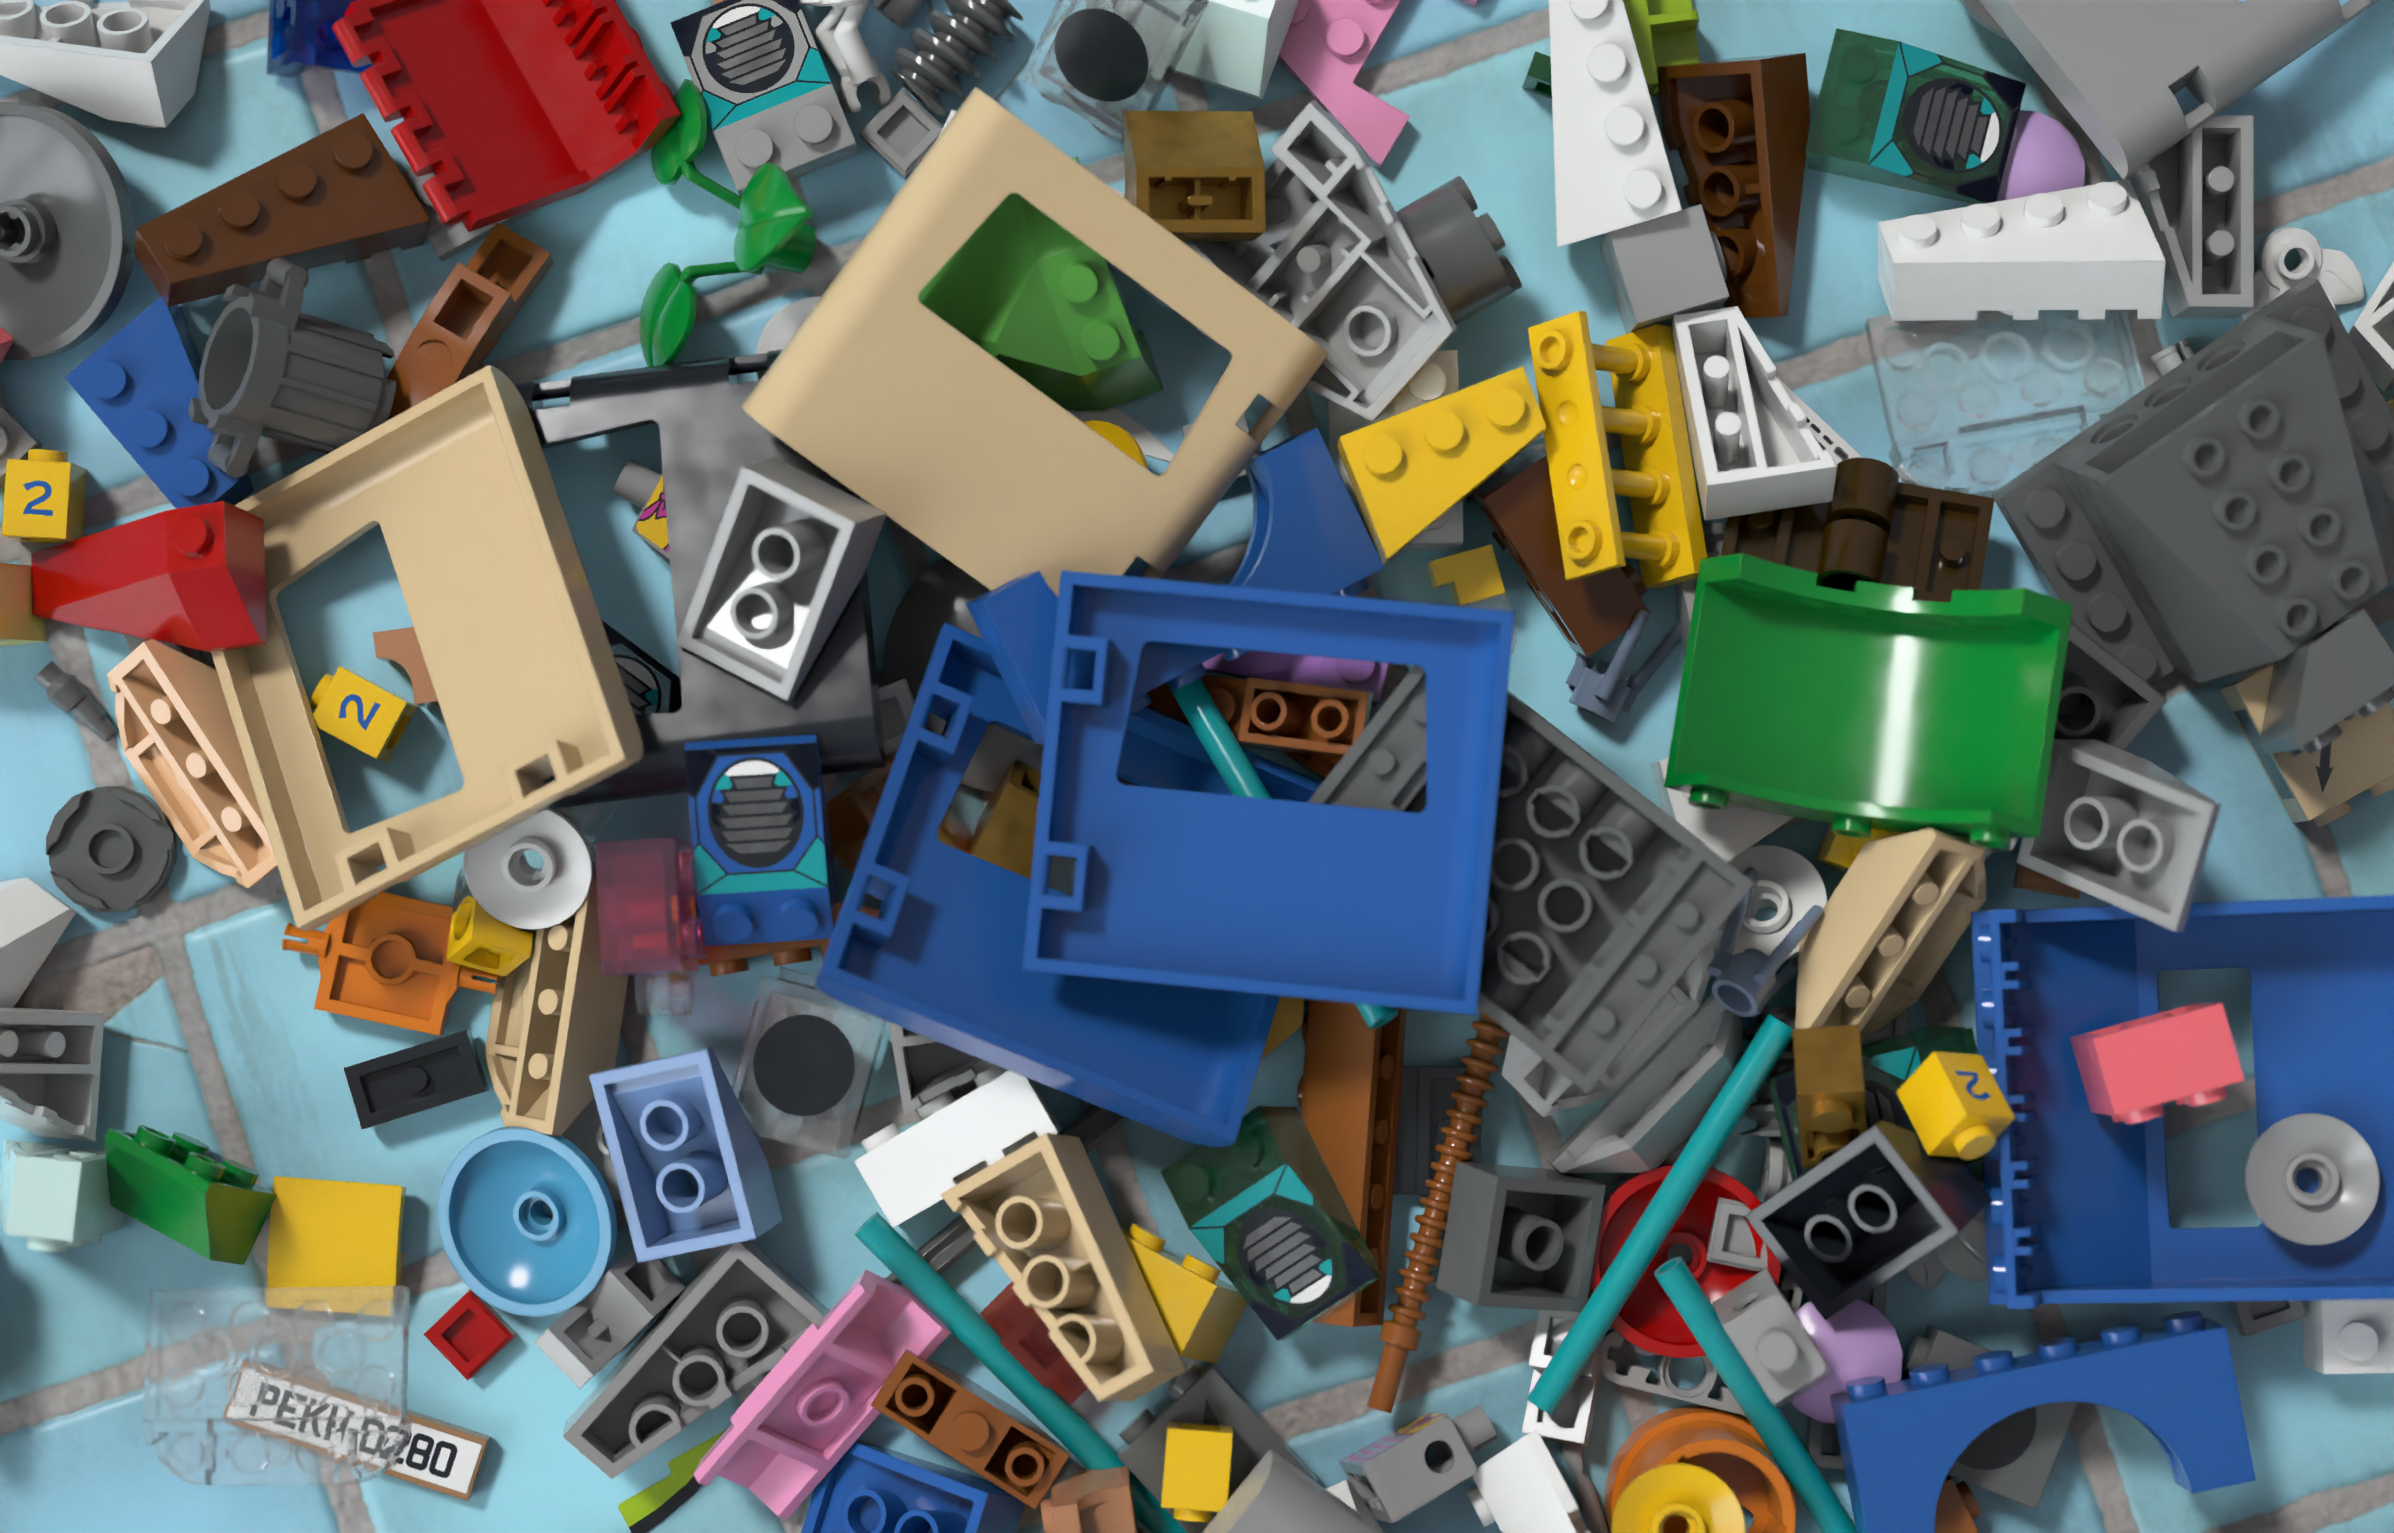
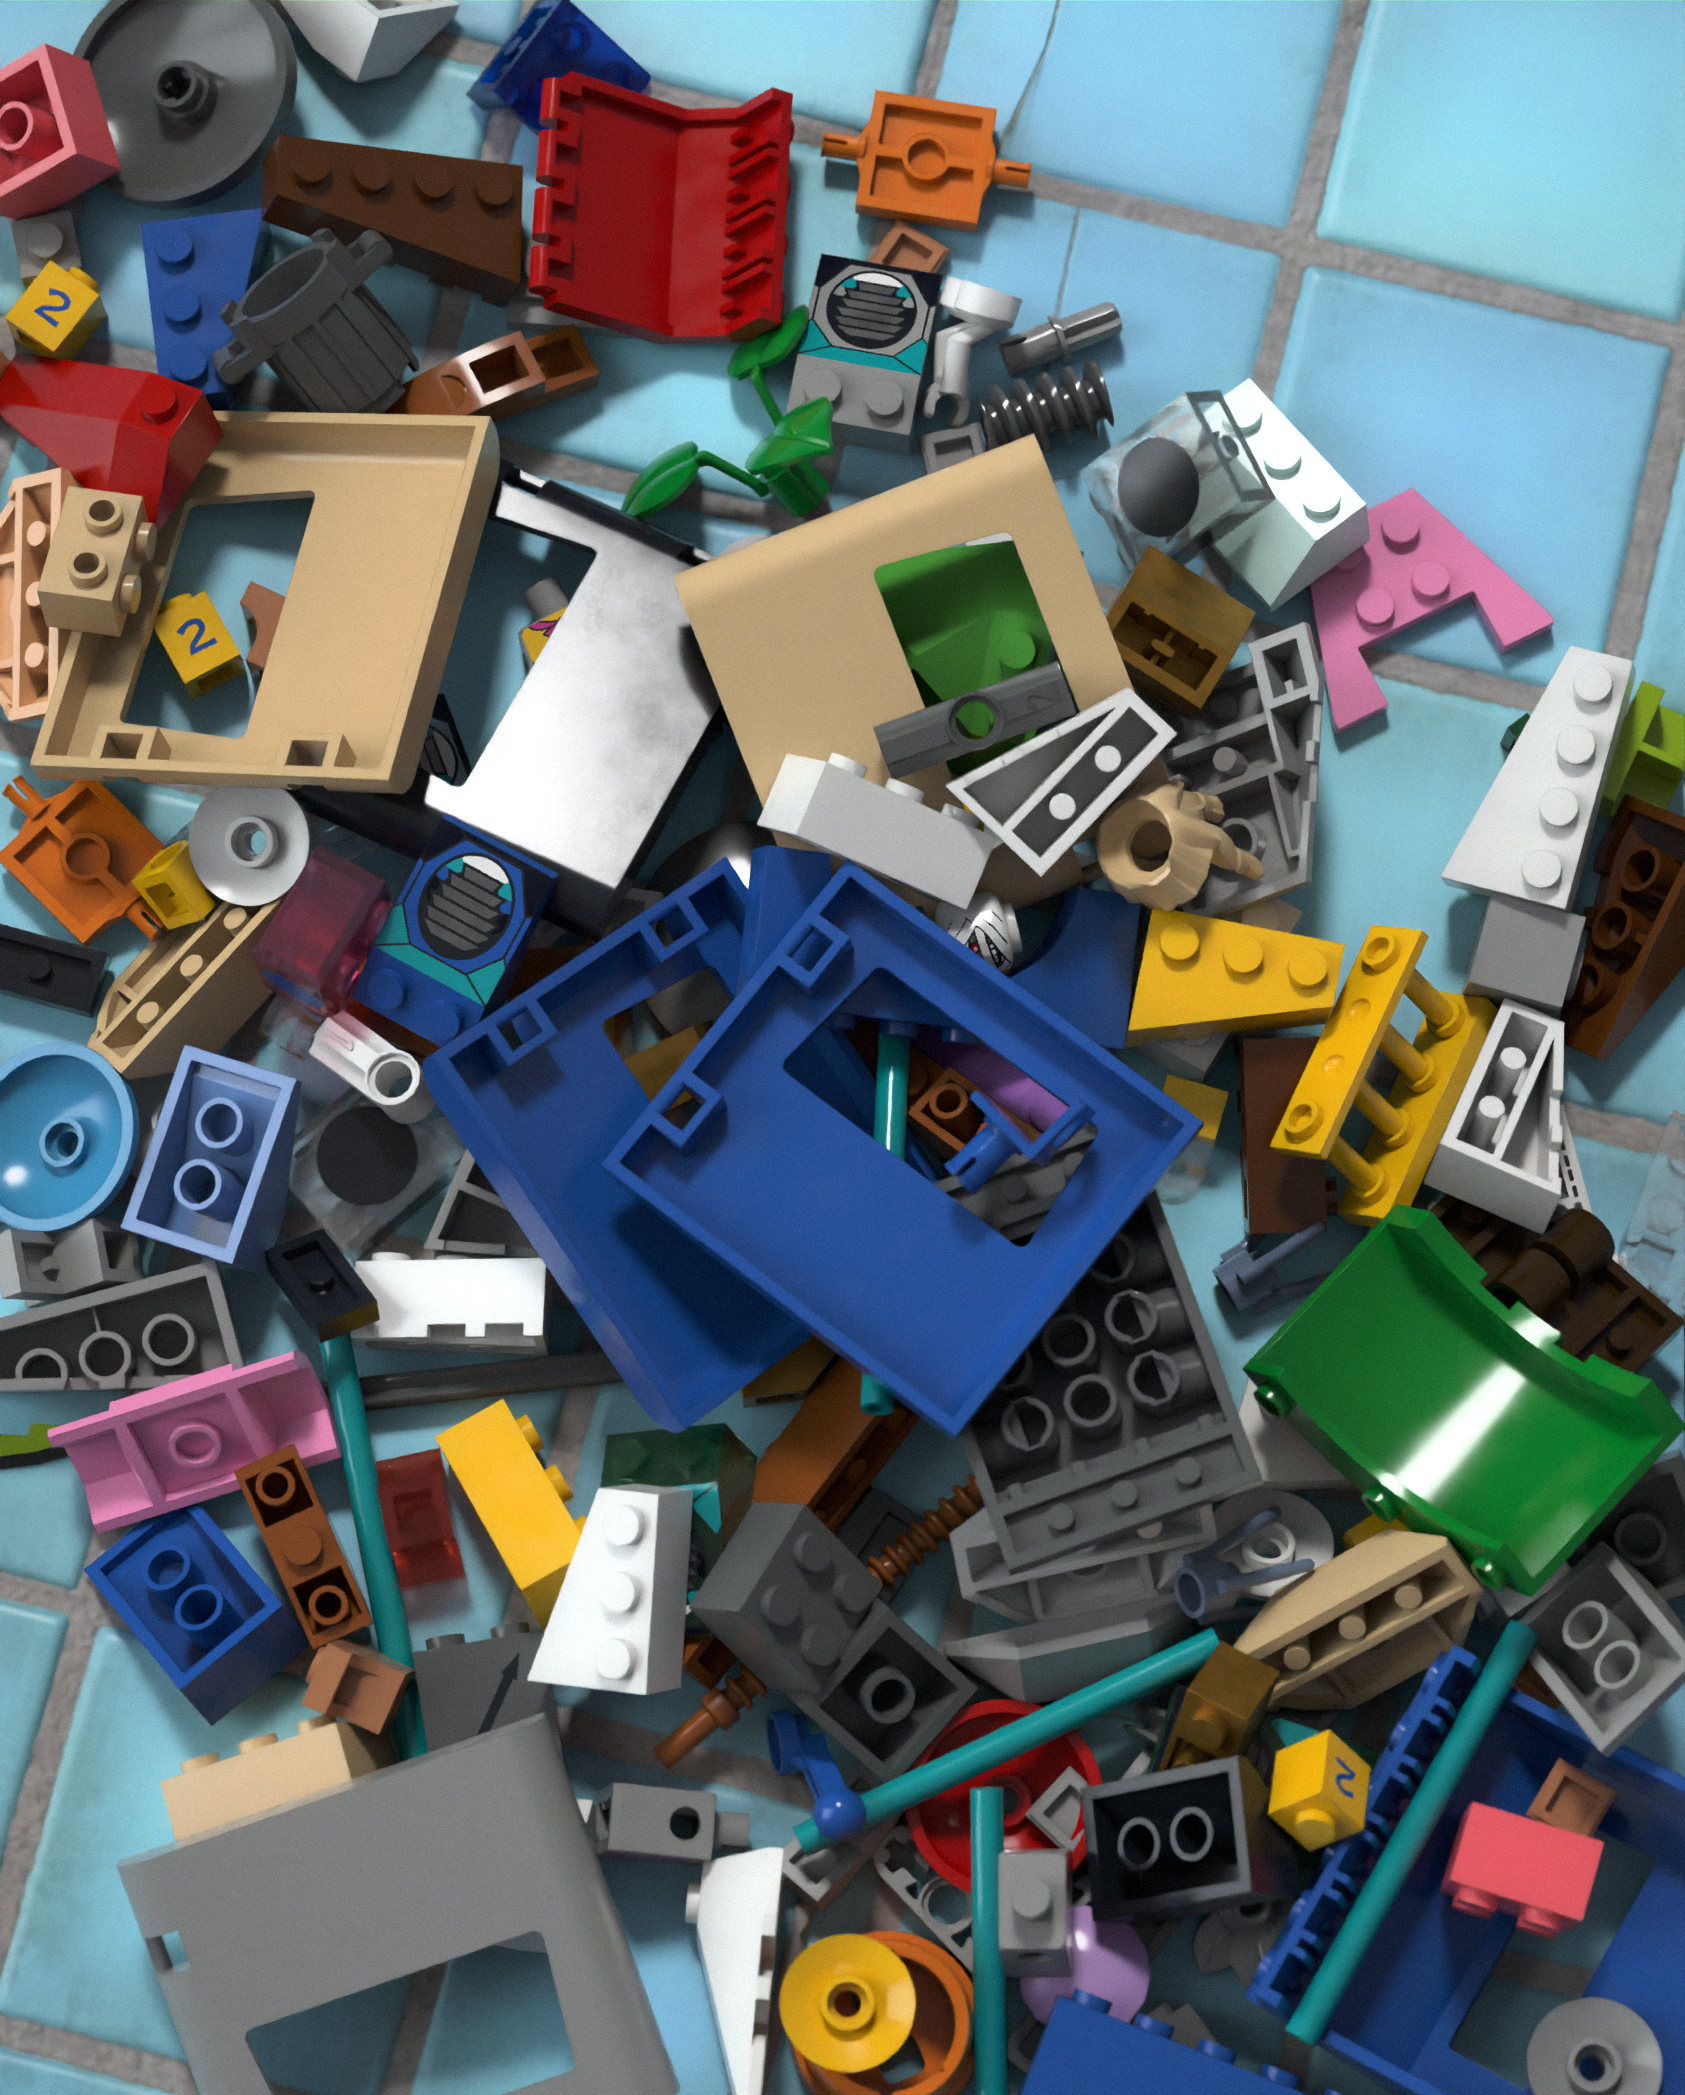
camera: 35 degrees right, 10 degrees down
(232, 709) = (96, 561): none -> tan brick
(757, 990) = (372, 1067): none -> white piece
(779, 575) = (613, 726): light grey slope -> none
(840, 1202) = (322, 1285): none -> black plate
(1061, 412) = (1017, 707): none -> dark grey piece
(1064, 523) = (879, 827): none -> white wedge
(1070, 1263) = (481, 1449): tan wedge -> none
(1196, 1470) = (471, 1697): yellow brick -> none
(1197, 377) = (1063, 778): none -> white wedge
(1201, 549) = (984, 928): none -> white head
(1270, 1307) = (623, 1595): none -> white wedge
(1347, 361) = (1192, 847): none -> tan piece
(1354, 735) = (1003, 1139): none -> blue bracket
(1404, 1220) = (786, 1596): none -> dark grey brick
(1459, 249) = (1354, 833): dark grey brick -> none
(1560, 1367) = (793, 1749): none -> blue piece
(2047, 1085) = (1411, 1833): none -> teal piece
(2155, 971) = (1571, 1800): none -> nougat tile

